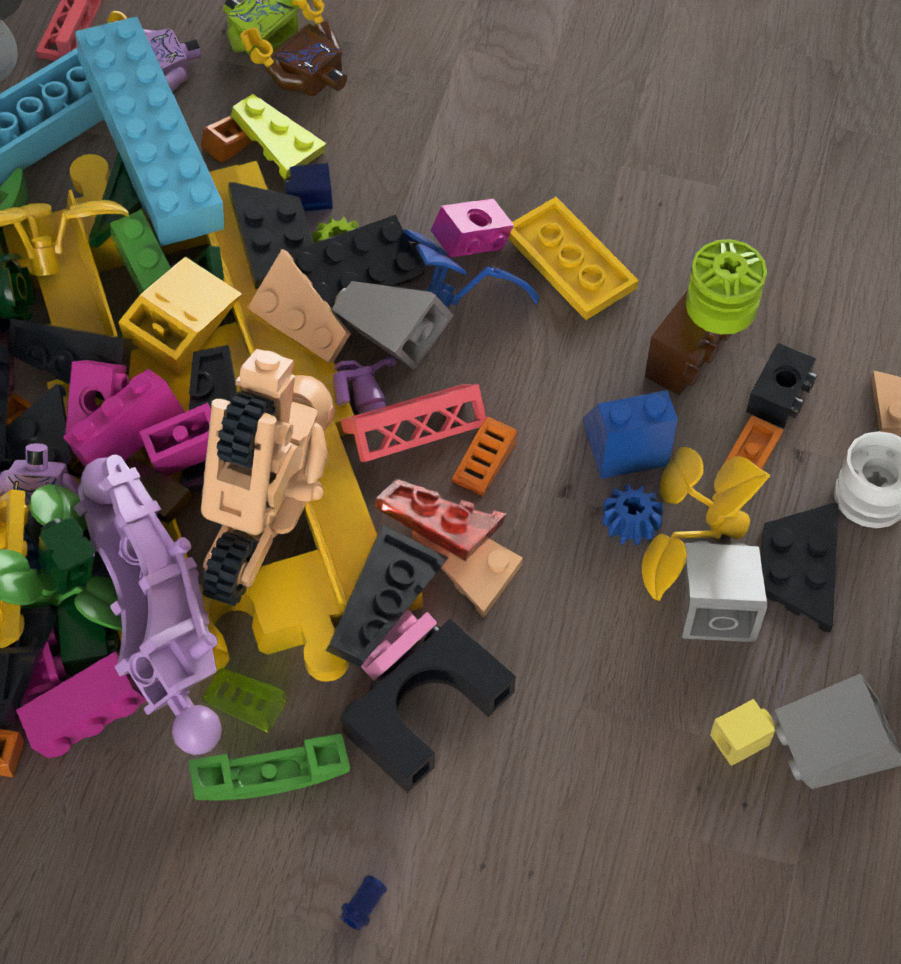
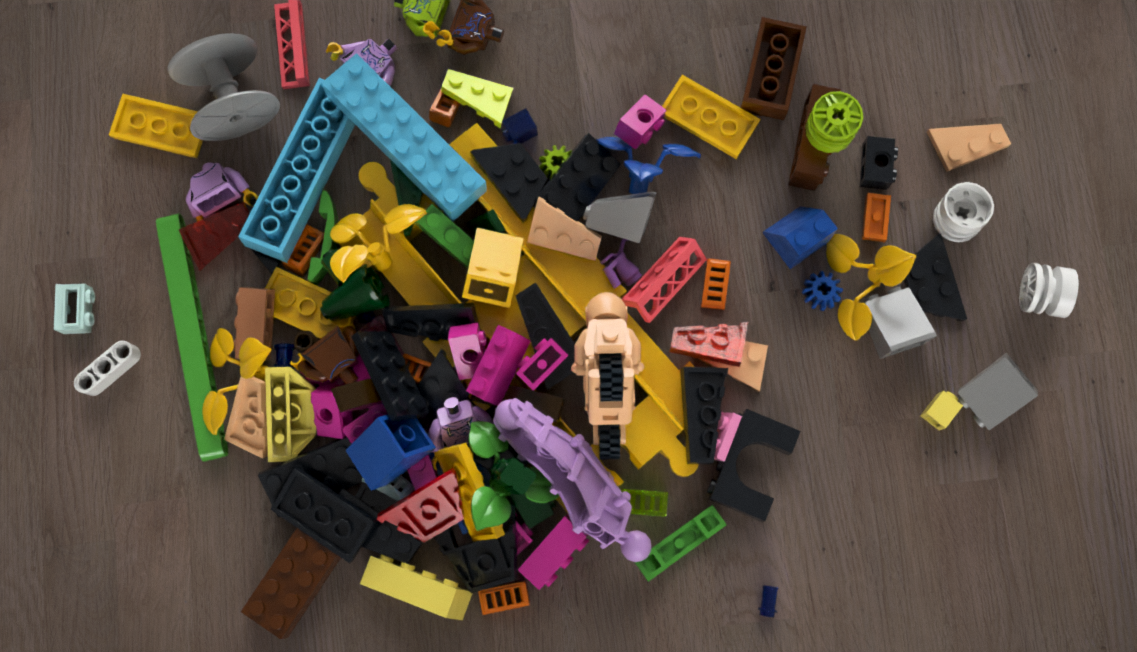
camera: 15 degrees left, 20 degrees up
(679, 222) = (773, 68): none -> reddish brown brick

